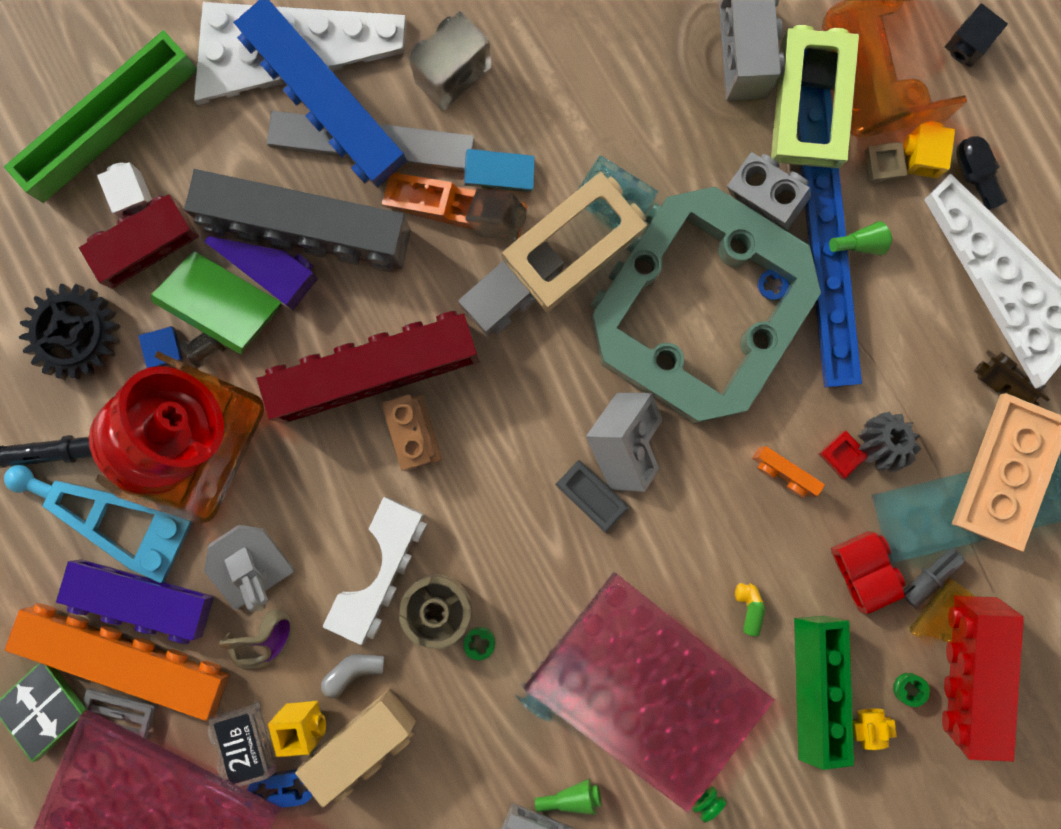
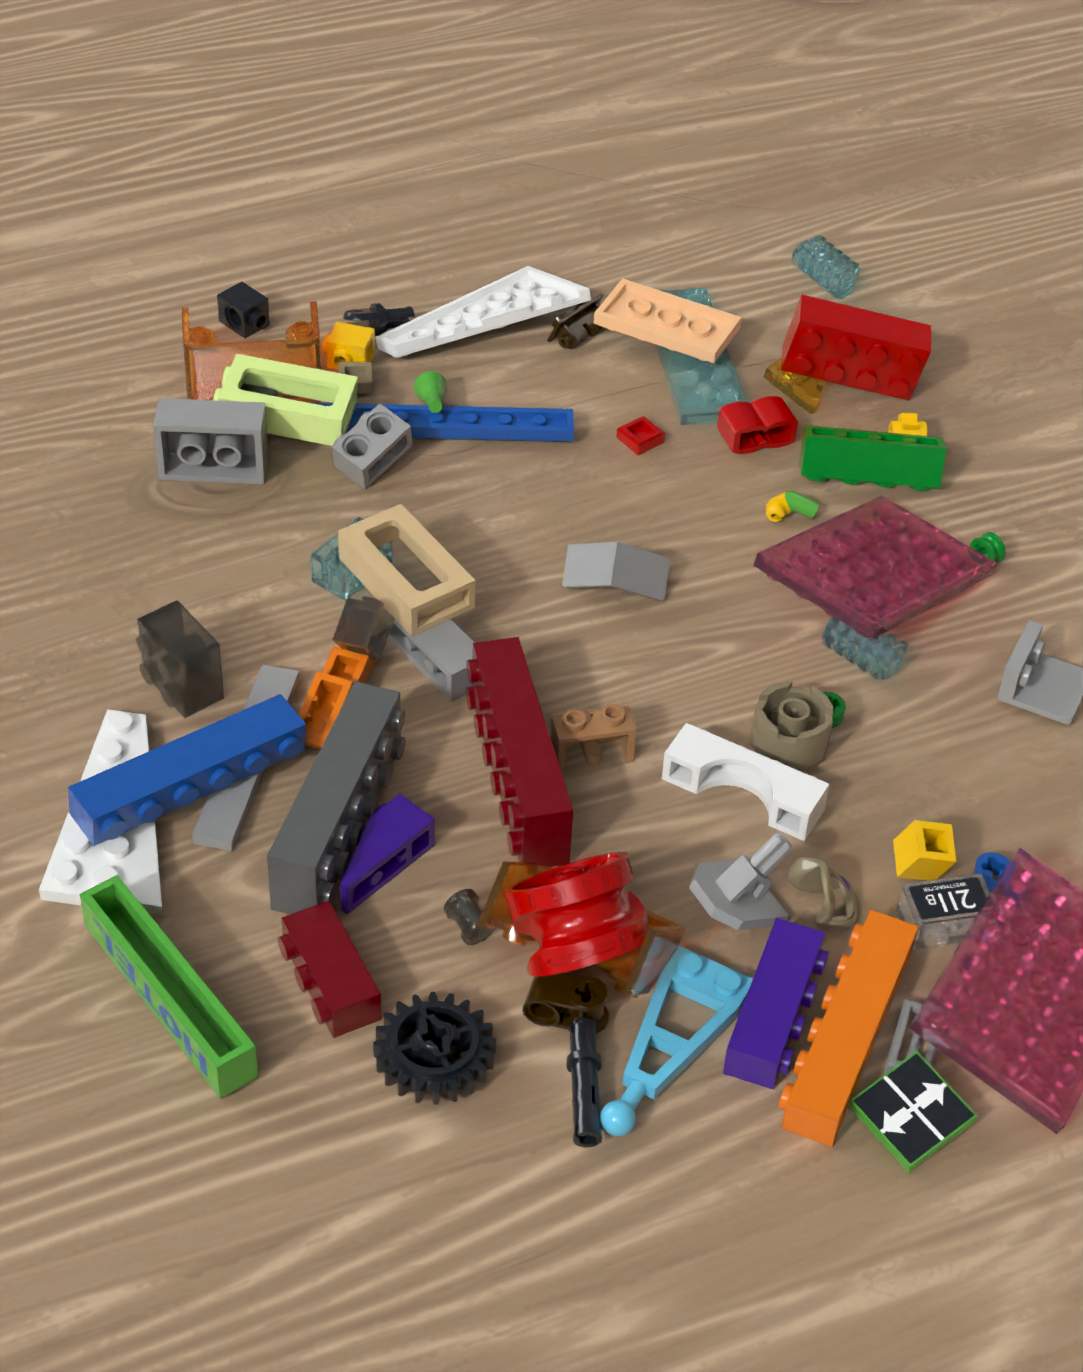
camera: 85 degrees left, 40 degrees down
(124, 189) = (263, 977): white brick -> none
(161, 340) = (465, 966): blue tile -> none
(216, 302) = (419, 893): bright green tile -> none
(348, 670) = (861, 818): light grey arm -> none
(357, 749) = (936, 783): tan brick -> none
(499, 170) = (306, 646): dark azure tile -> none
(578, 798) = (987, 640): bright green cone -> none
(592, 496) = (670, 612): dark grey tile -> none
(764, 245) = (542, 541): sand green panel -> none
(770, 294) = (468, 460): blue bush -> none
(798, 480) = (655, 466): orange plate -> none
(889, 442) = (632, 396): dark grey gear -> none
(901, 693) = (869, 413): green bush -> none
(933, 577) = (759, 383): dark grey axle -> none

